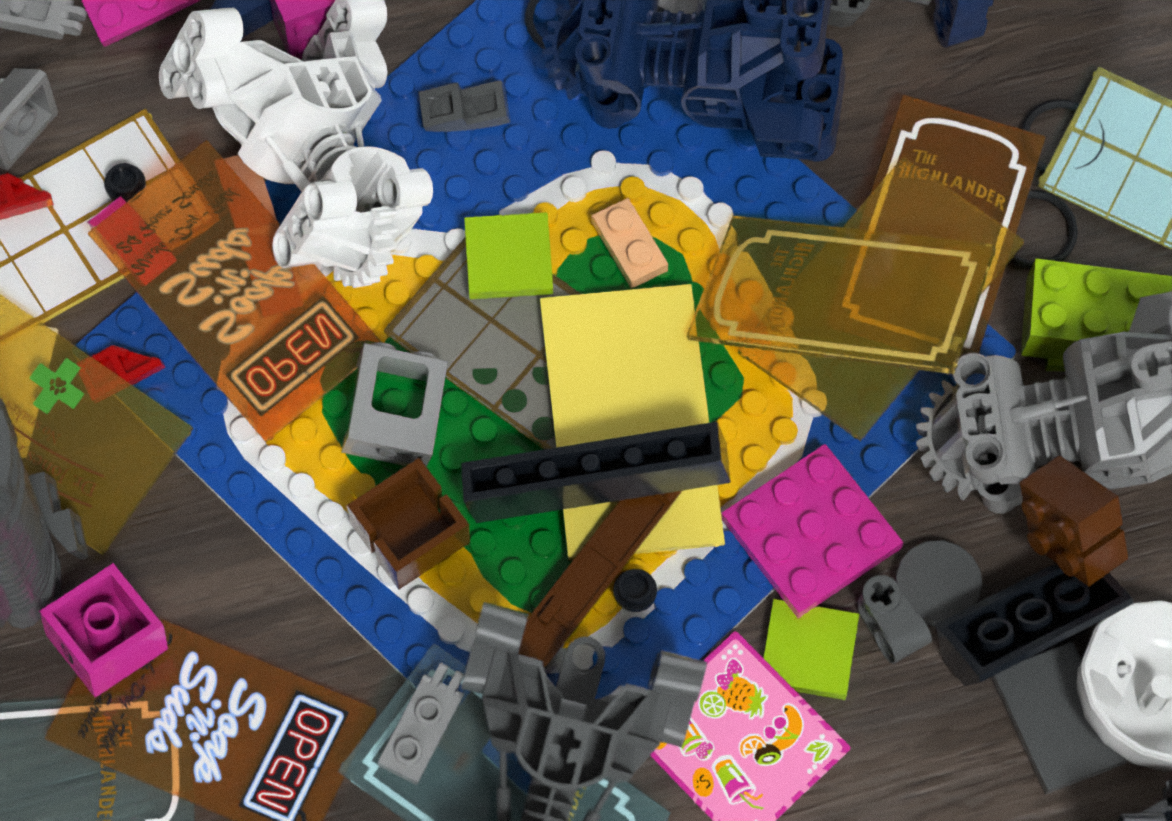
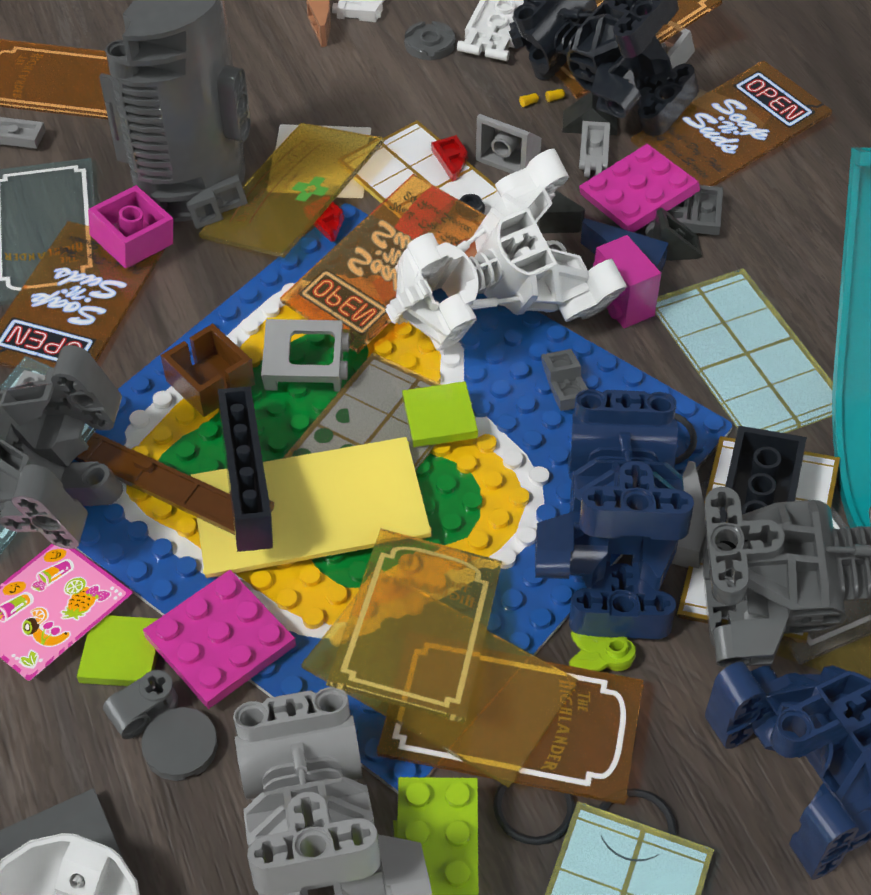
camera: 85 degrees right, 15 degrees down
(139, 81) = (562, 216): none -> pearl dark grey slope
(629, 243) = (465, 493): light nougat plate -> none
(635, 590) = (164, 519): black plate -> none
(859, 137) = (602, 652): none -> lime plate
(1024, 621) = (128, 804): black slope -> none
(1073, 520) = (203, 813): reddish brown piece -> none

